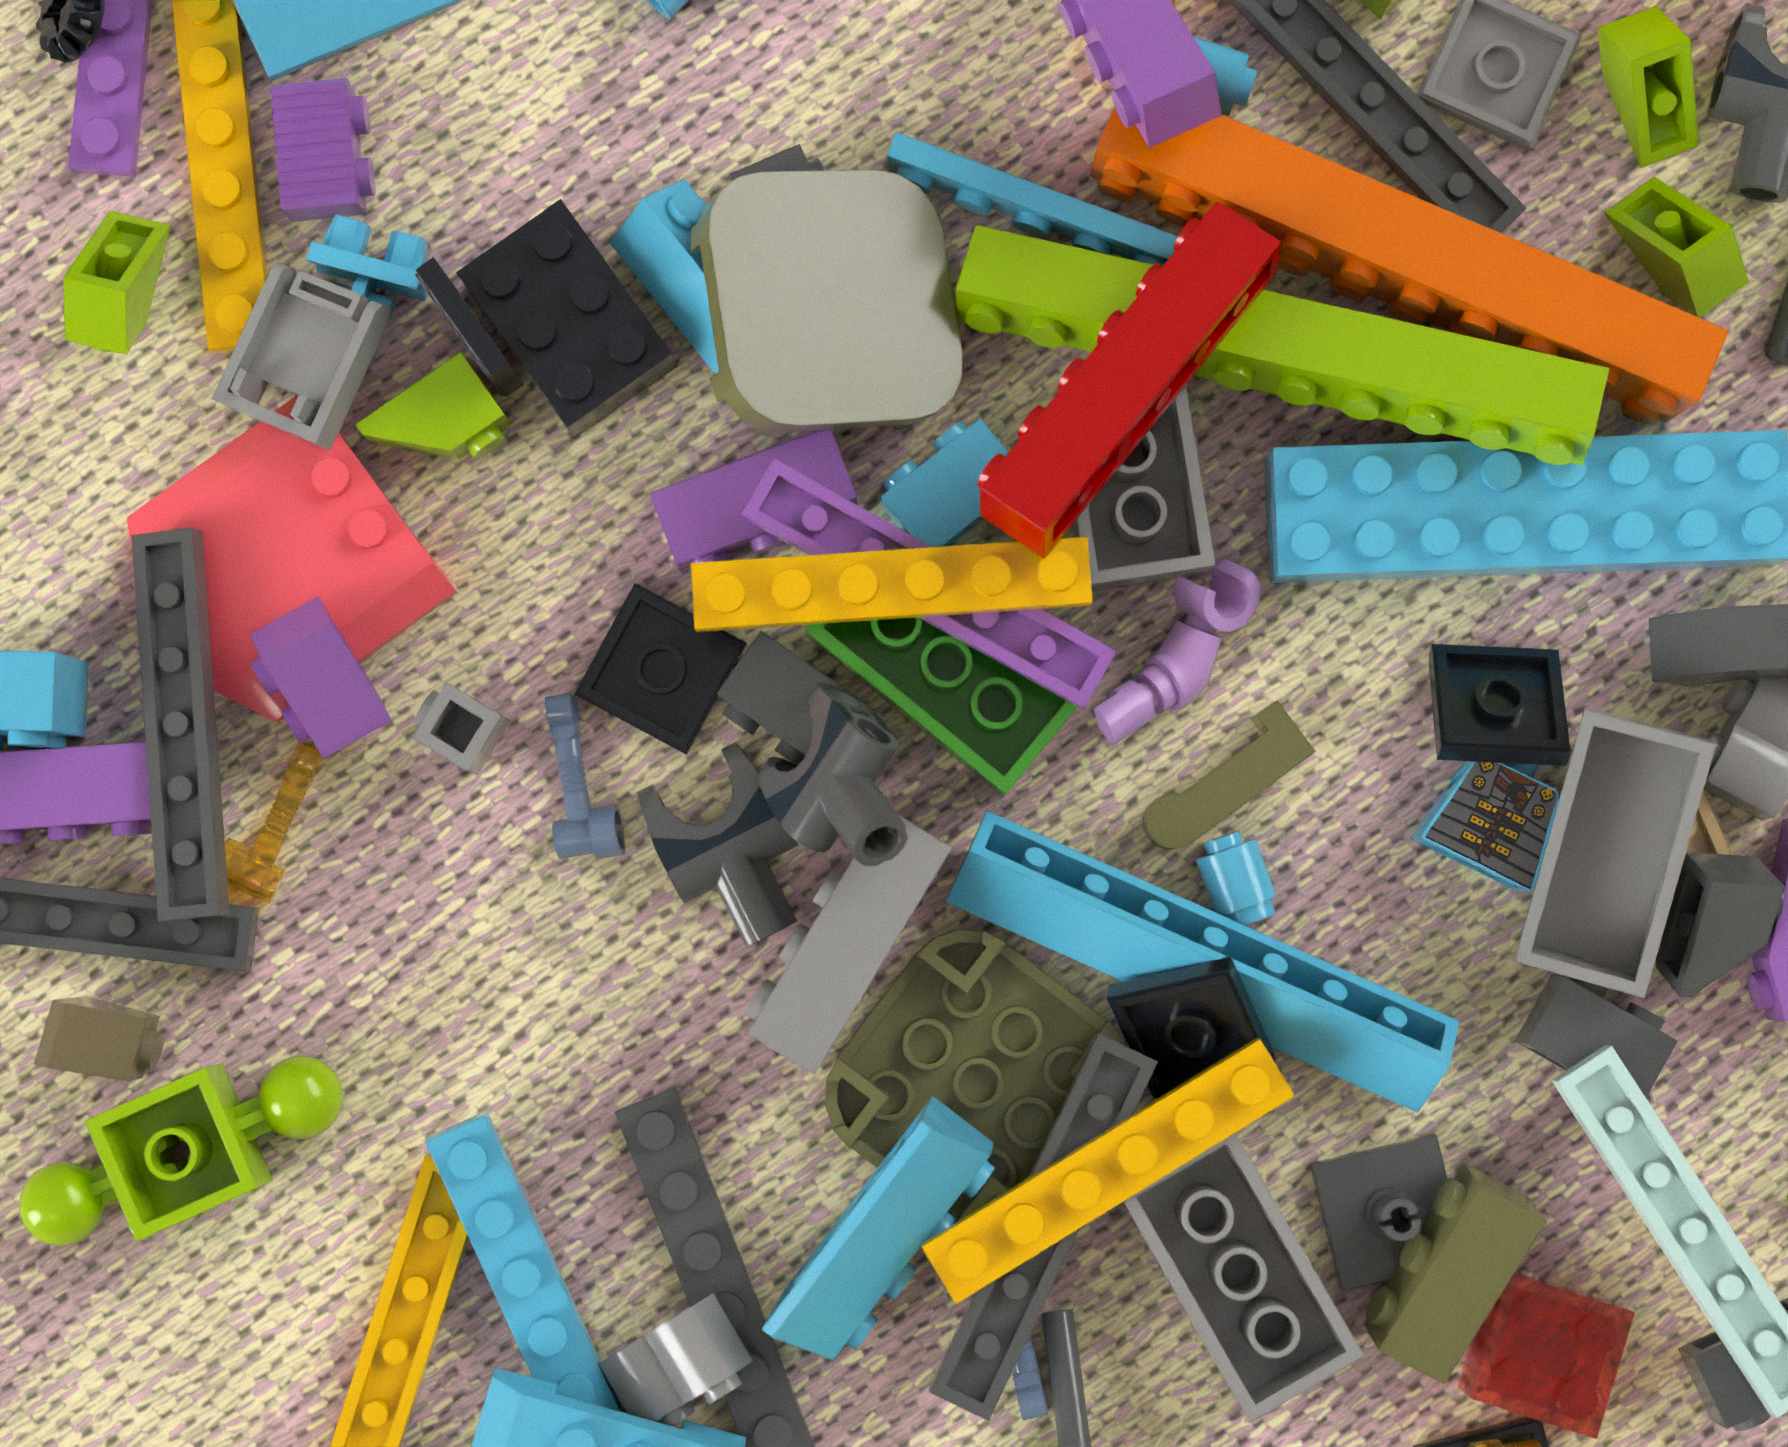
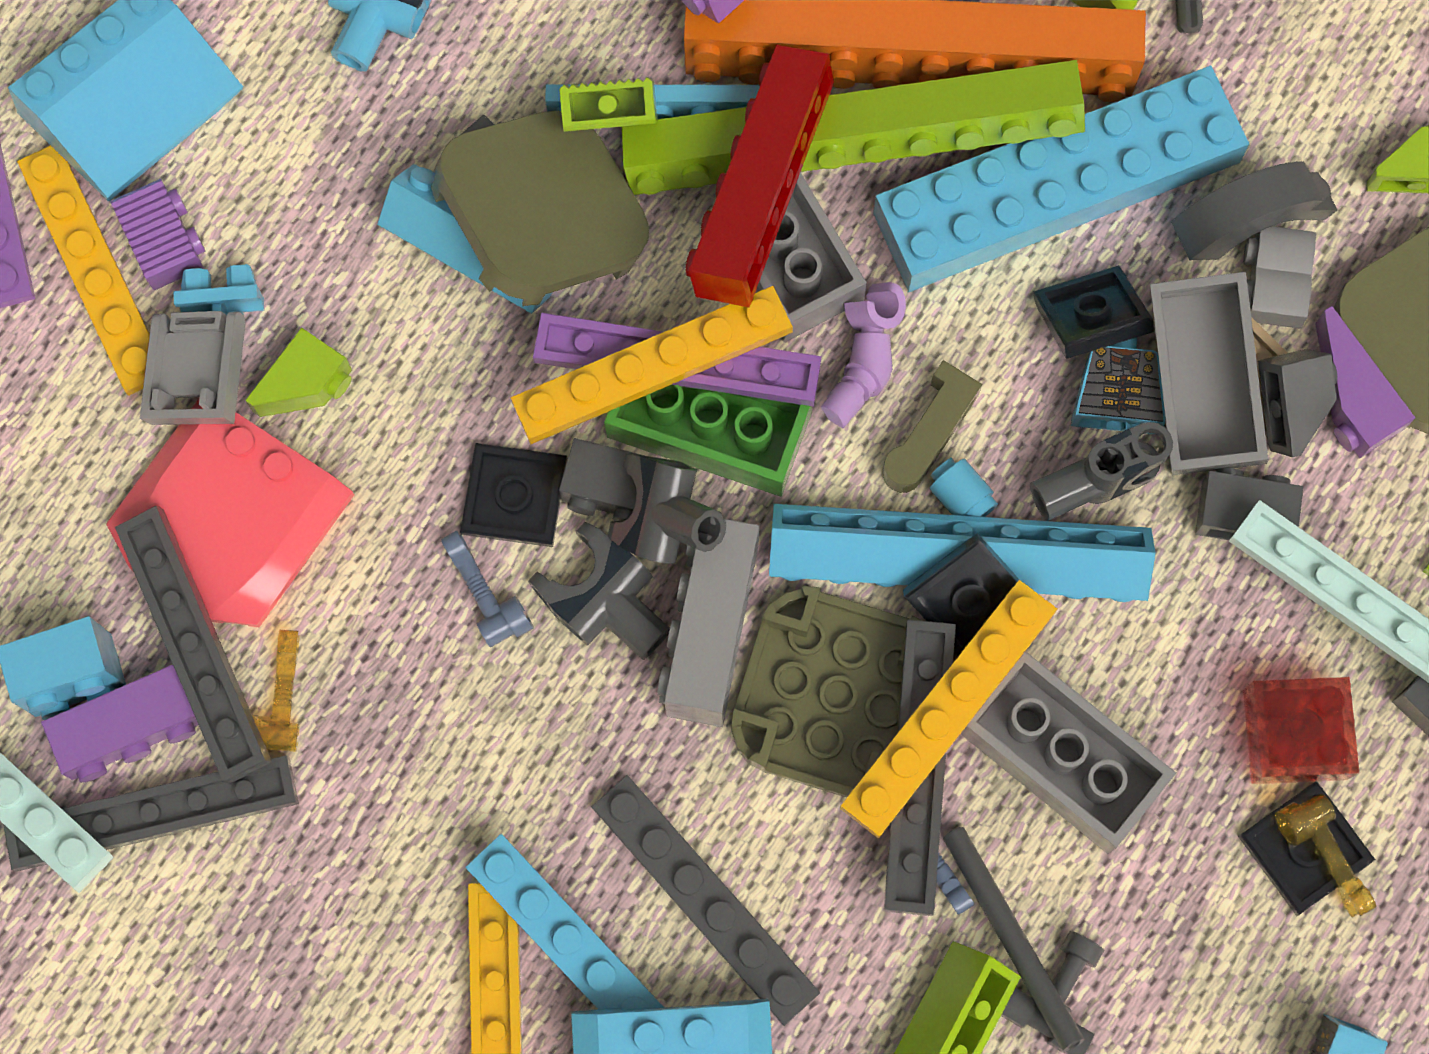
camera: 15 degrees left, 10 degrees down
(99, 1039) = (208, 882): dark tan slope -> none
(114, 282) = (45, 370): lime slope -> none
(135, 1139) = (257, 940): lime brick -> none
(318, 677) = (279, 578): medium lavender brick -> none
(459, 727) = (389, 578): light grey brick -> none
(468, 327) = (301, 309): black tile -> none
(567, 318) = (366, 283): black brick -> none
(677, 1363) = (700, 960): light grey brick -> none
(705, 511) = (512, 367): medium lavender brick -> none
(881, 1232) = (808, 815): medium azure slope -> none
(942, 494) = (666, 298): medium azure brick -> none
(965, 199) = (608, 104): none -> lime brick
(1376, 1204) = (1155, 680): dark grey tile -> none
(1391, 928) = (1107, 472): none -> dark grey connector
(1453, 1272) = (1214, 698): olive brick -> none

